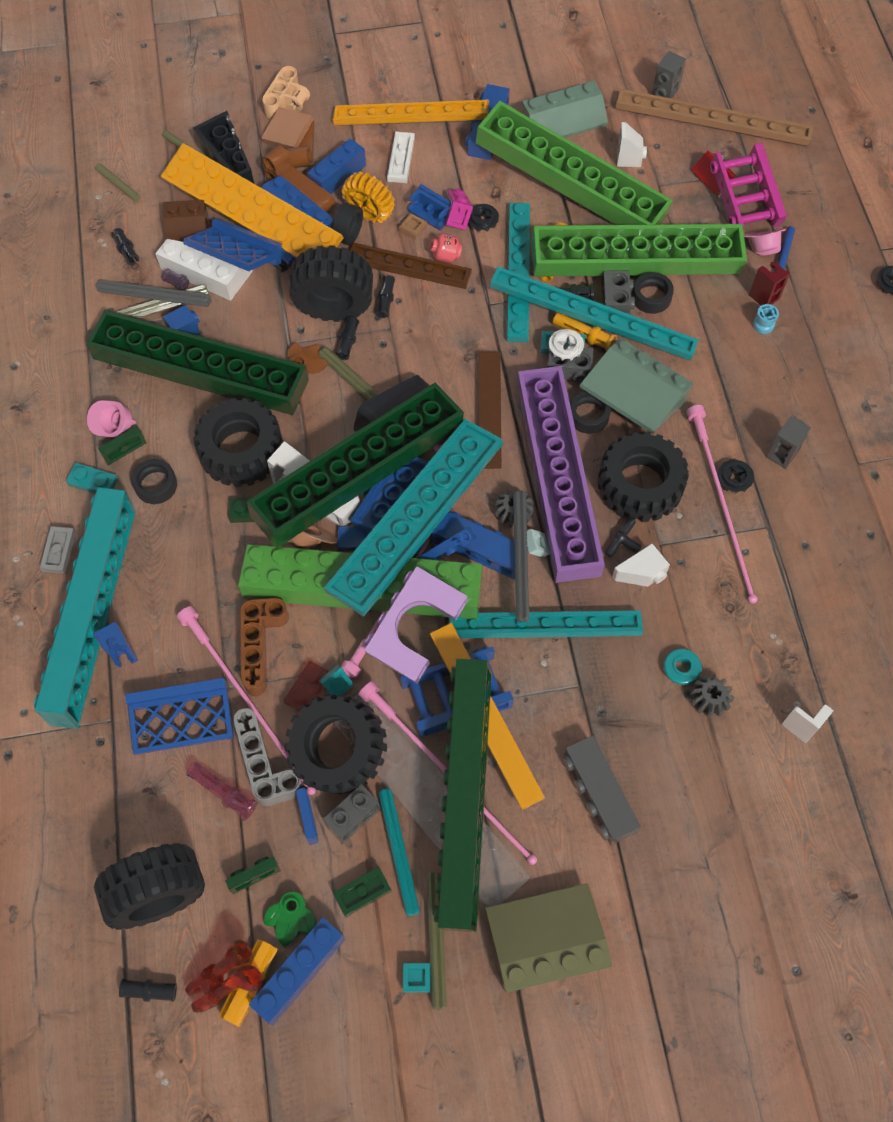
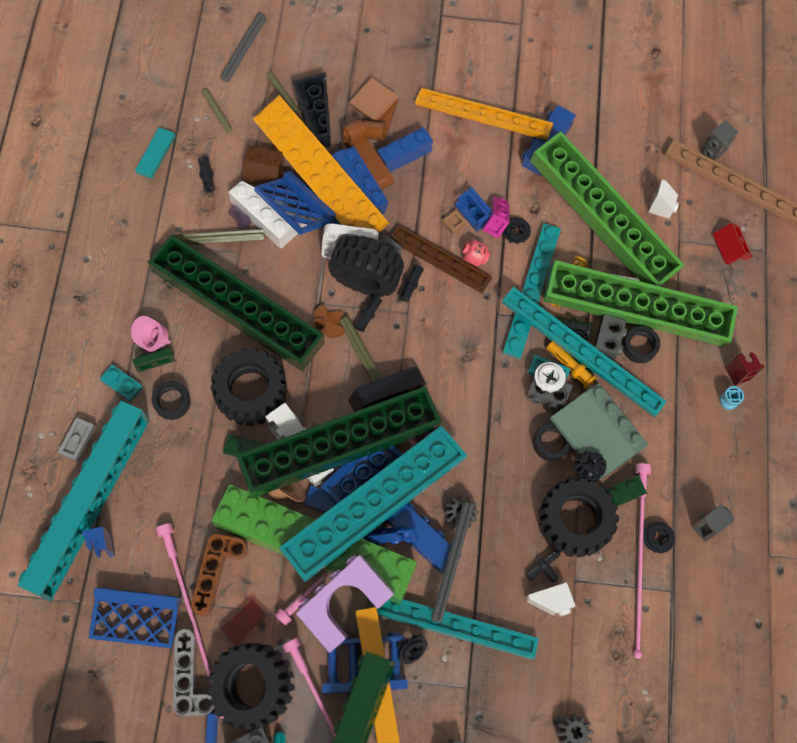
camera: 10 degrees right, 5 degrees up
(61, 240) = (155, 153): none -> teal tile
(128, 114) = (243, 47): none -> dark grey axle
(154, 293) = (217, 227): dark grey axle -> none
(183, 320) = (234, 260): blue brick -> none
(230, 796) = (158, 699): clear pink pin -> none
(285, 93) = (387, 67): light nougat piece -> none
(285, 264) = (334, 232): none -> white beam
(336, 681) = (268, 626): teal plate -> none
(348, 222) = (398, 207): black tyre -> none
(370, 195) = (422, 187): light orange gear -> none
(401, 157) = (463, 152): white tile -> none
(490, 399) = (471, 405): reddish brown tile -> none
(510, 664) = (412, 649): none -> black gear
(537, 543) = (471, 551): light aqua plate -> none
(559, 475) = (508, 494): medium lavender brick -> none
(569, 110) = (619, 149): sand green slope -> none
(636, 424) = (586, 471): none -> black gear
(687, 657) = (569, 696): teal piece -> none
(689, 436) = (627, 491): none -> dark green plate
(763, 176) = (772, 262): dark pink fence -> none
(765, 242) = (754, 323): bright pink piece -> none
(786, 246) = (770, 335): blue bar -> none

